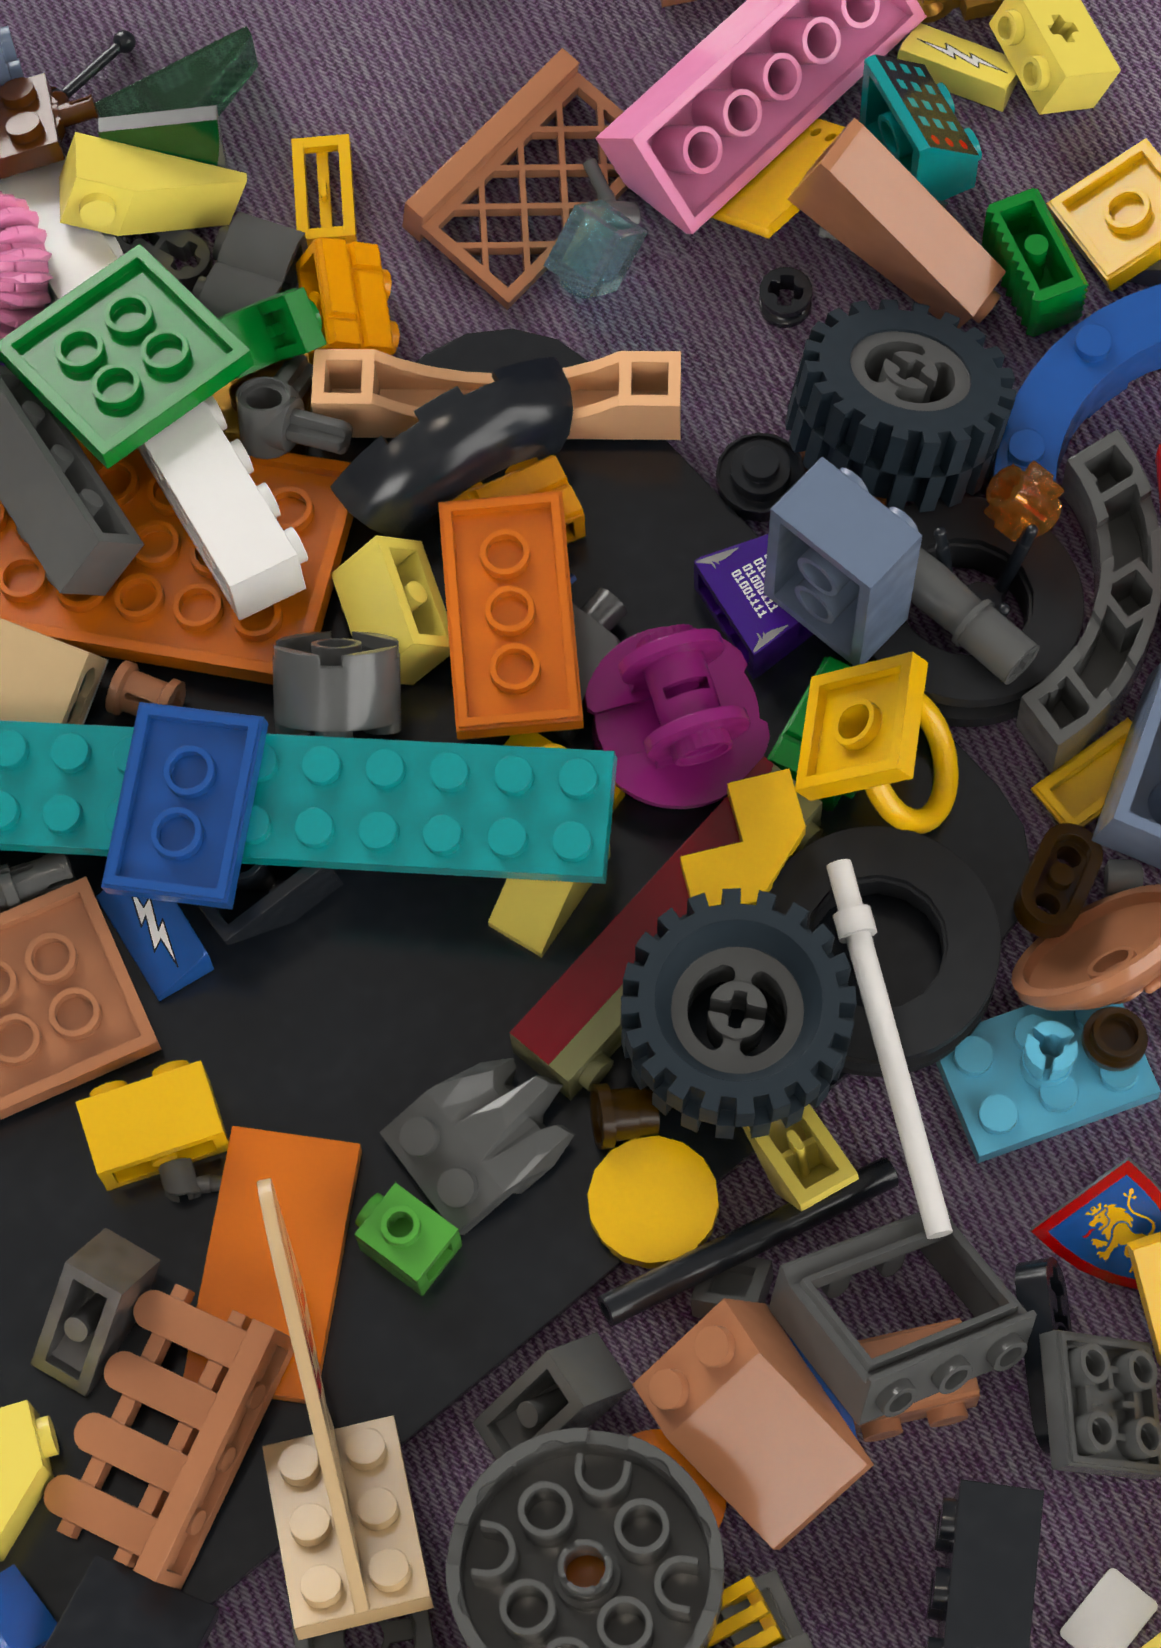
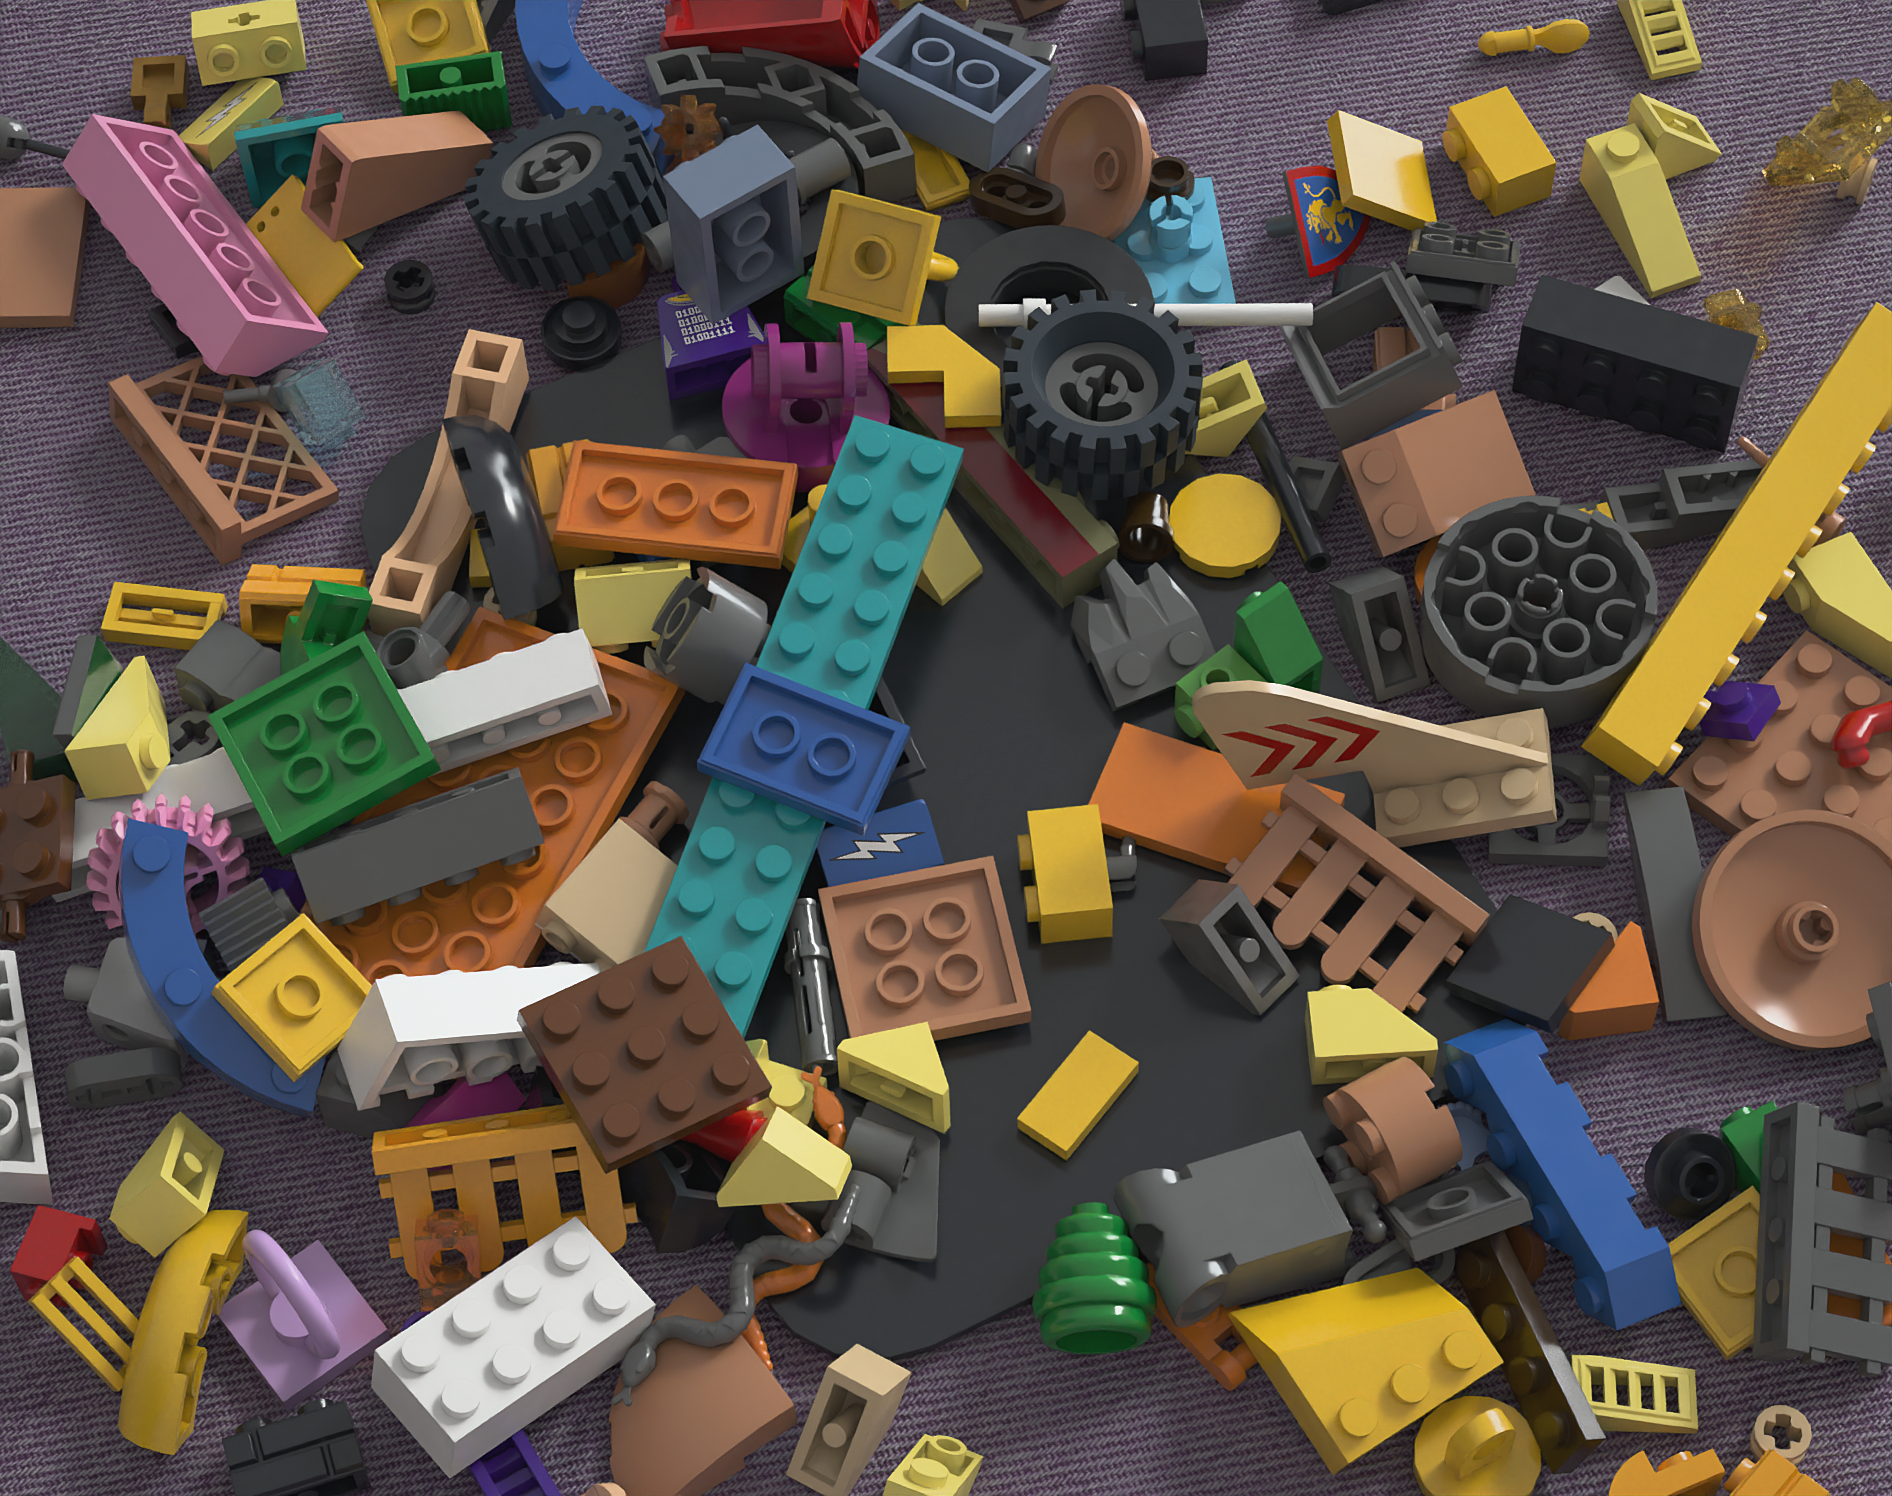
camera: 80 degrees left, 10 degrees down
(464, 1283) = (1277, 640): none -> green slope

